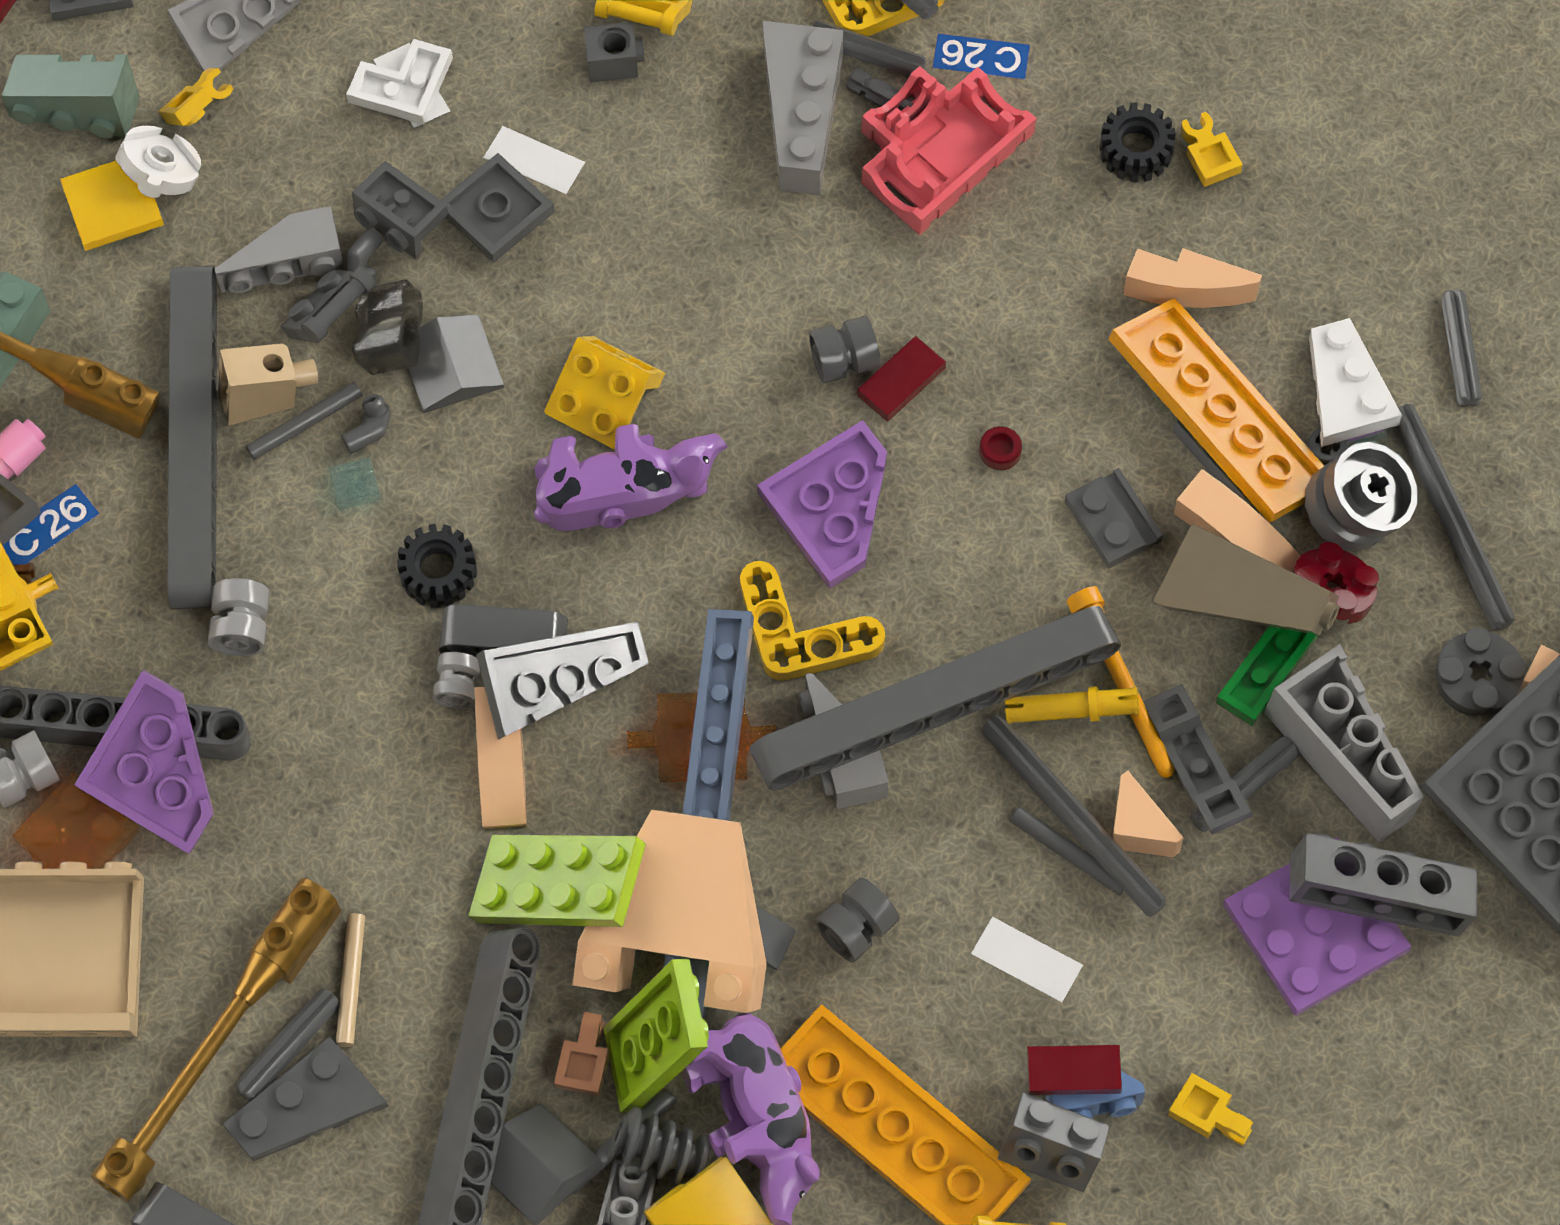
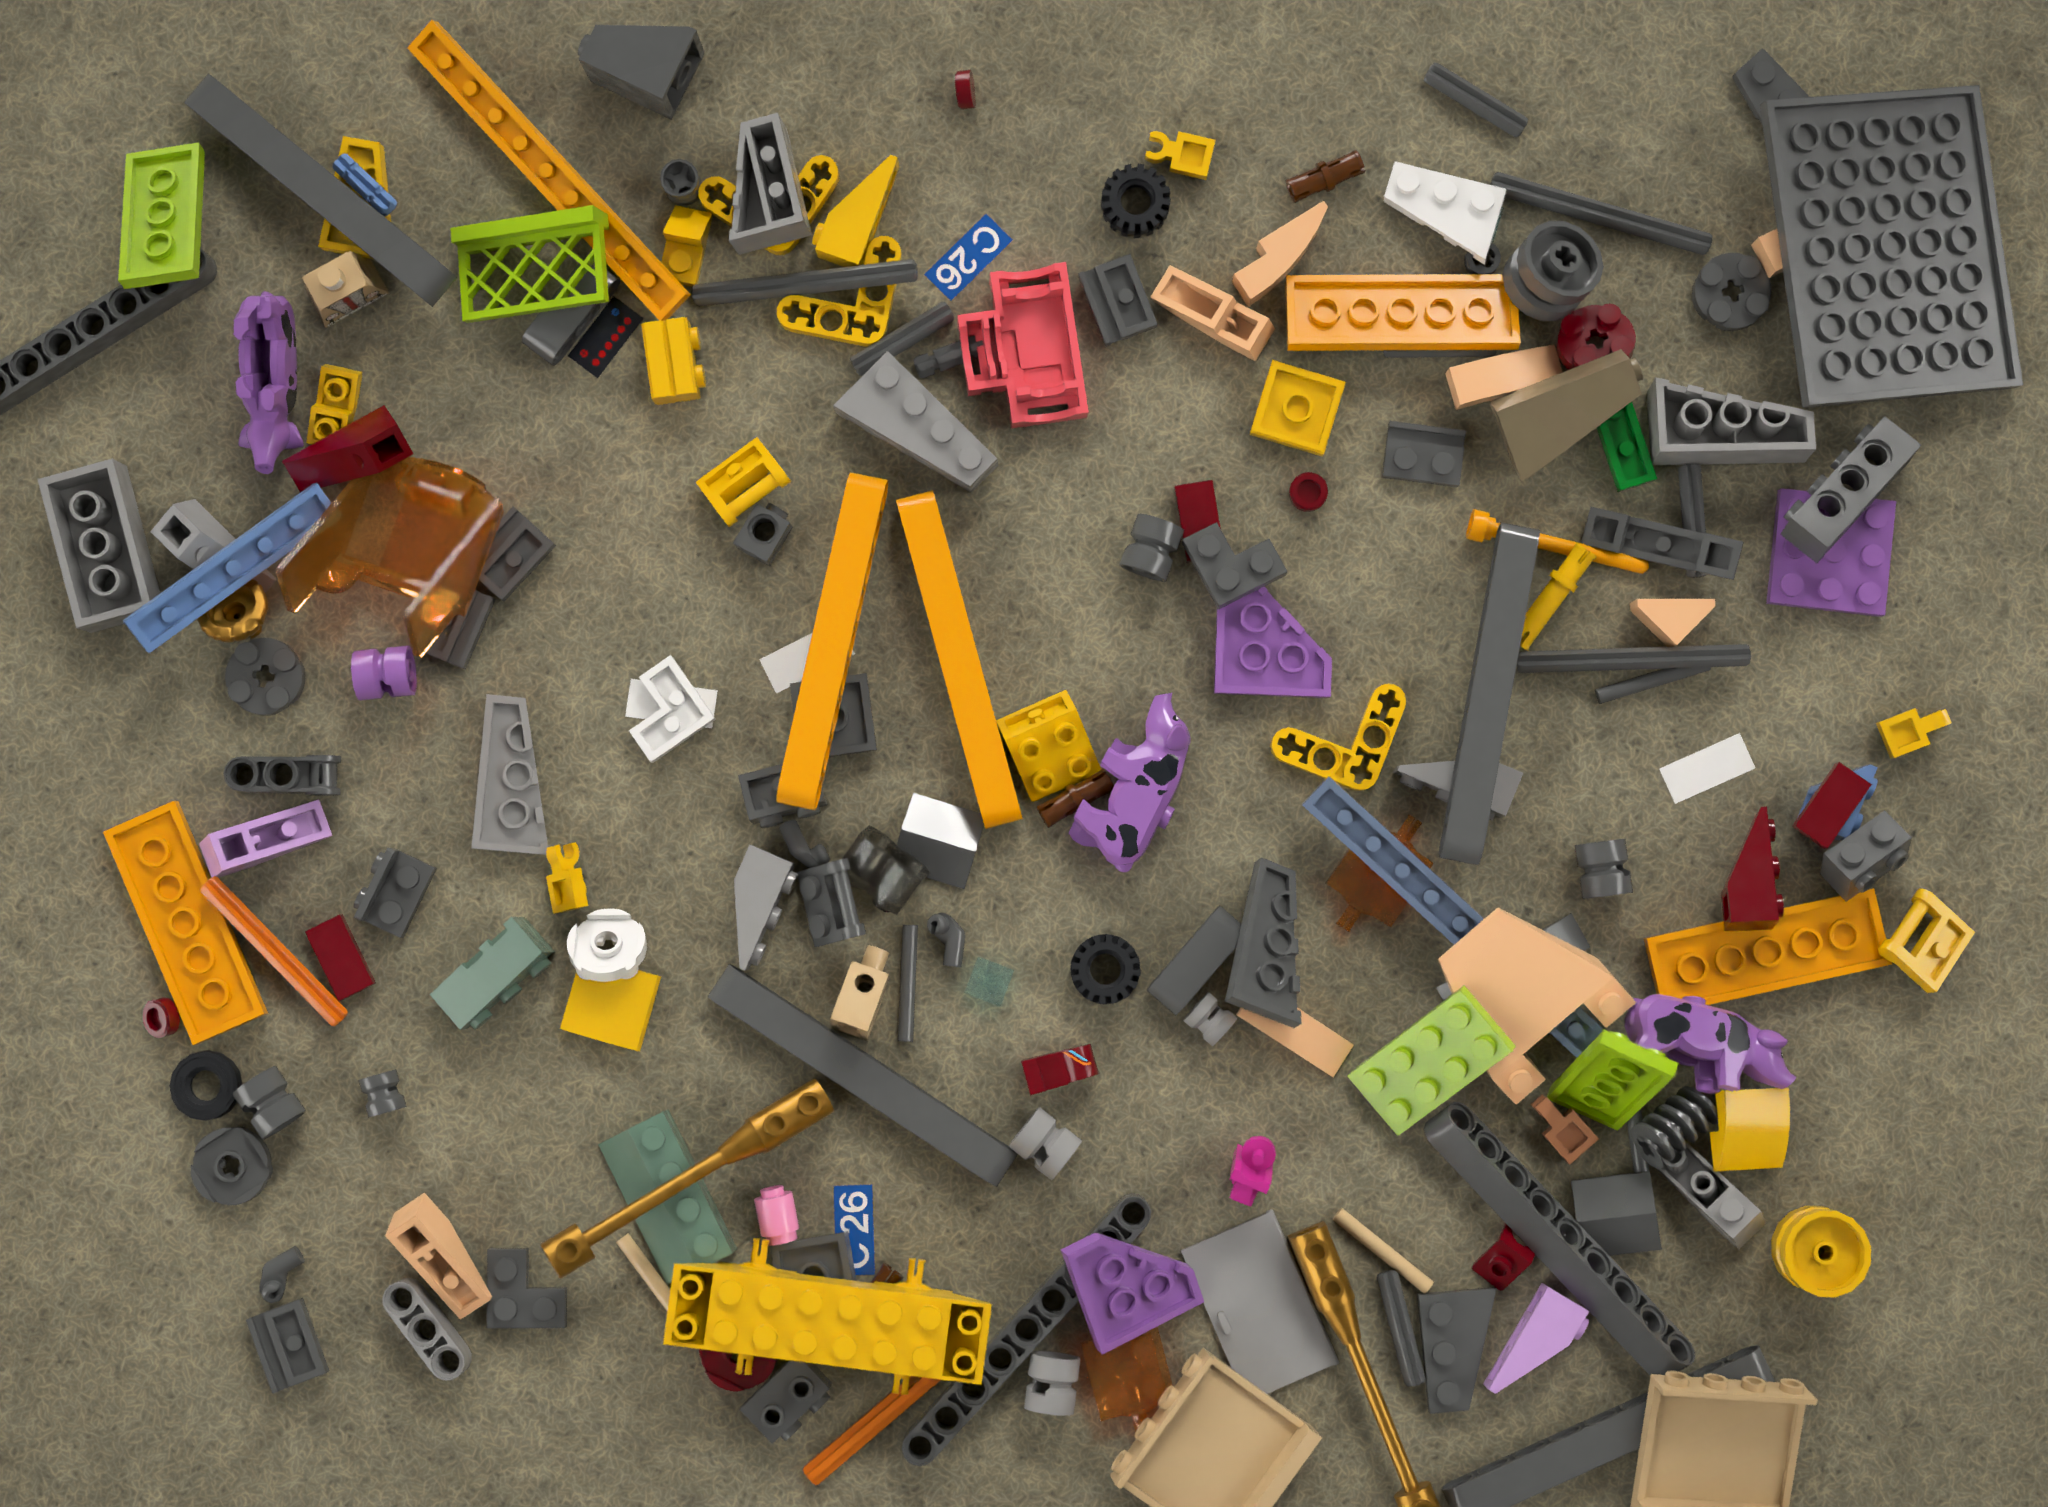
camera: 50 degrees left, 20 degrees up
(235, 891) = (1267, 1313): none -> light grey container
(314, 585) = (1059, 1068): none -> dark red leg
(340, 800) = (1252, 1169): none -> dark pink hips
(373, 1169) = (1541, 1333): none -> lavender slope
(418, 1087) = (1503, 1260): none -> dark red bracket
(547, 429) = (1070, 799): none -> reddish brown pin
(558, 155) = (832, 642): none -> light orange beam
(622, 267) = (959, 659): none -> light orange beam
(871, 422) = (1231, 575): none -> dark grey plate
(943, 1052) = (1750, 889): none -> dark red slope
(1040, 185) = (1117, 300): none -> dark grey plate
(1066, 387) = (1297, 408): none -> yellow plate
(1093, 266) = (1213, 312): none -> light nougat slope
(1288, 274) = (1325, 176): none -> reddish brown pin

